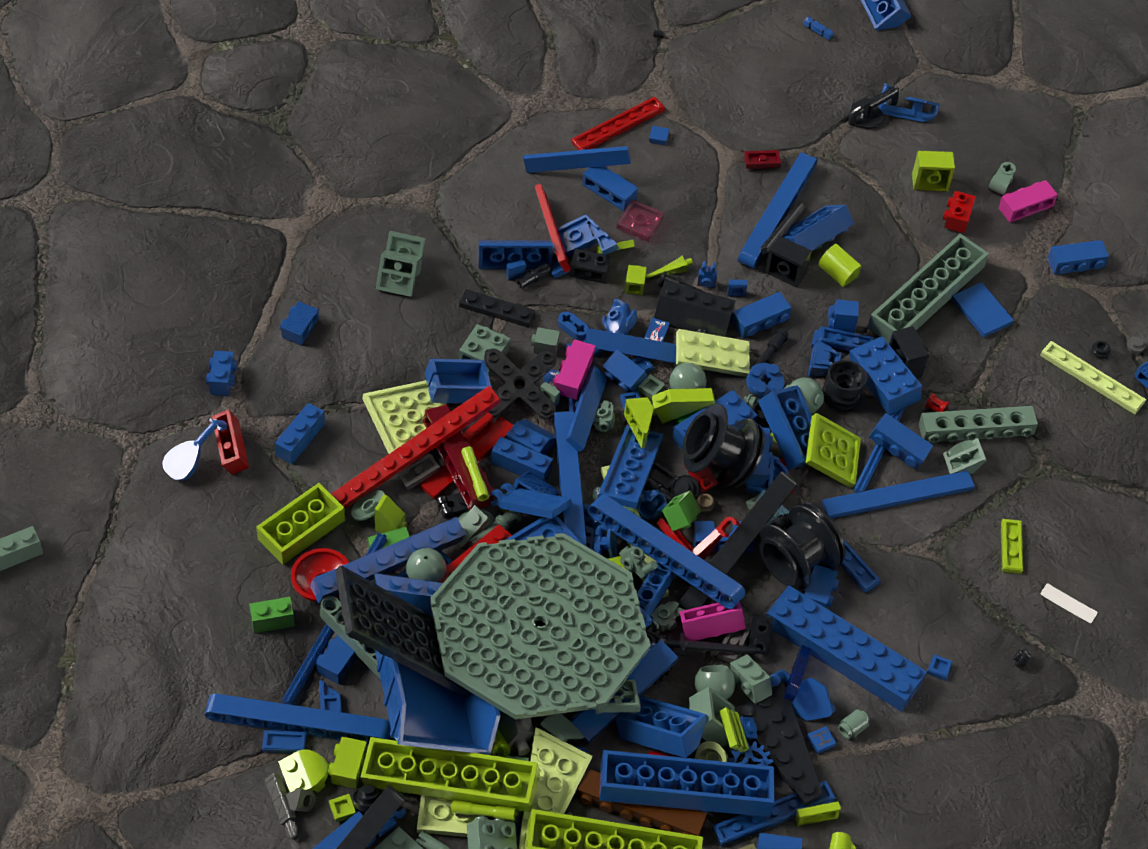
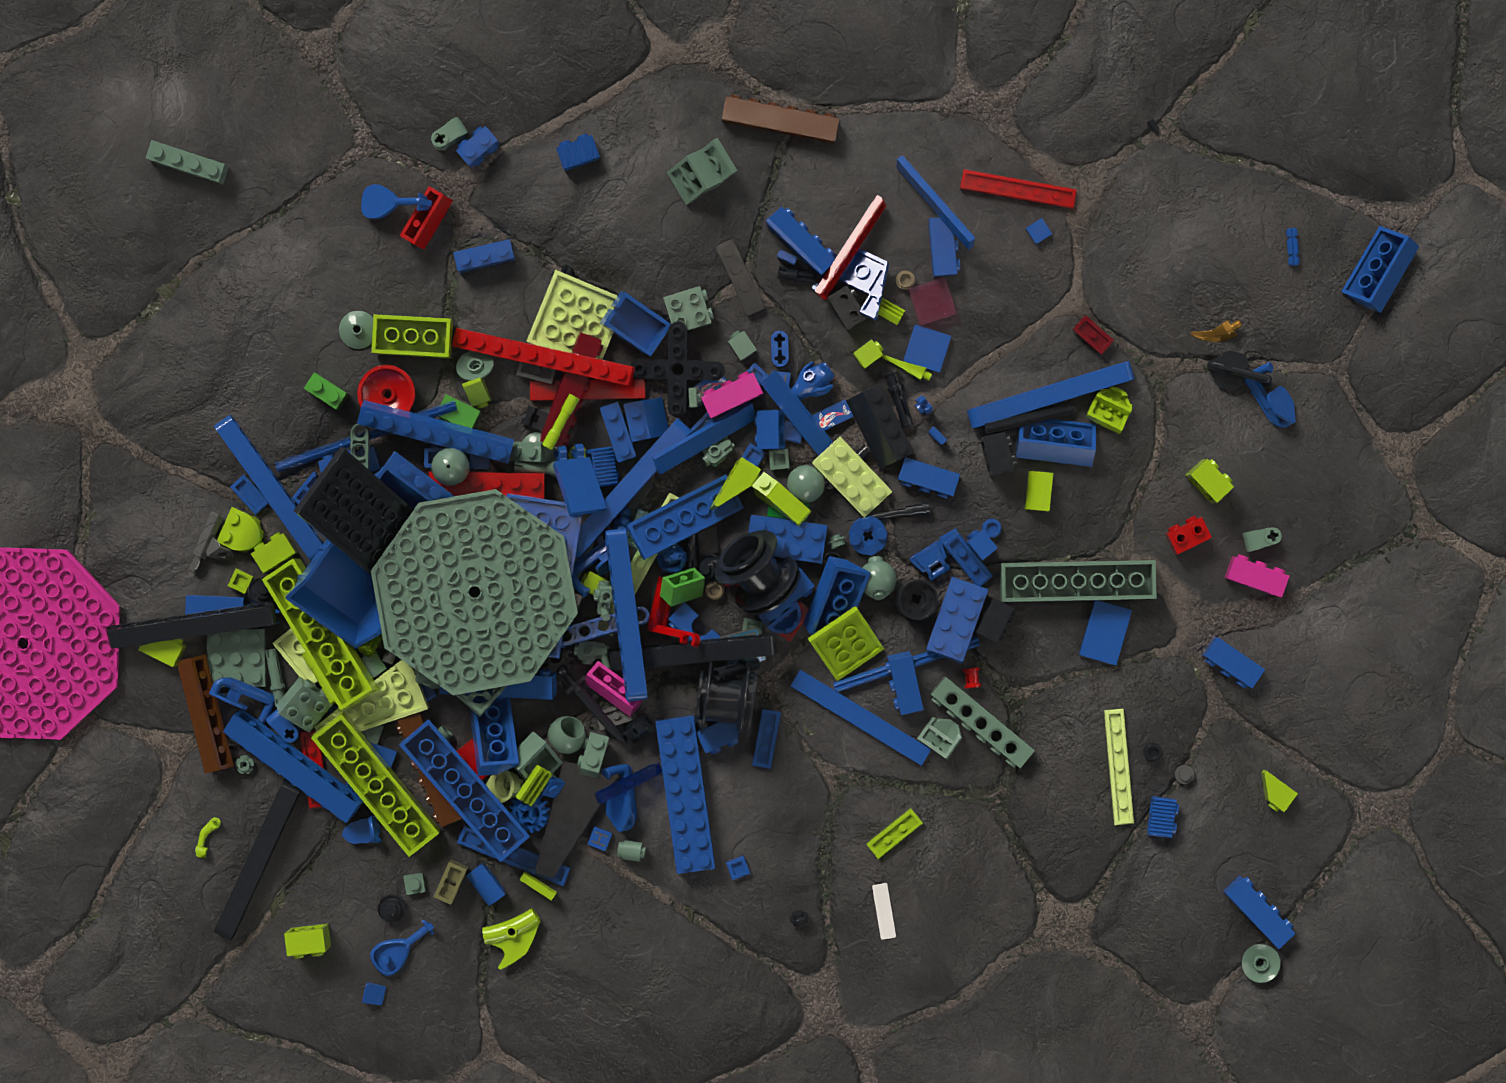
camera: 55 degrees right, 35 degrees up
(191, 384) = (450, 133): none -> sand green piece
(255, 567) = (346, 329): none -> sand green dish
(419, 201) = (780, 119): none -> reddish brown brick
(608, 223) = (905, 280): none -> dark tan plate
(668, 248) = (927, 348): none -> blue tile
(824, 188) = (1110, 409): none -> lime slope
(836, 100) = (1221, 333): none -> pearl gold bar

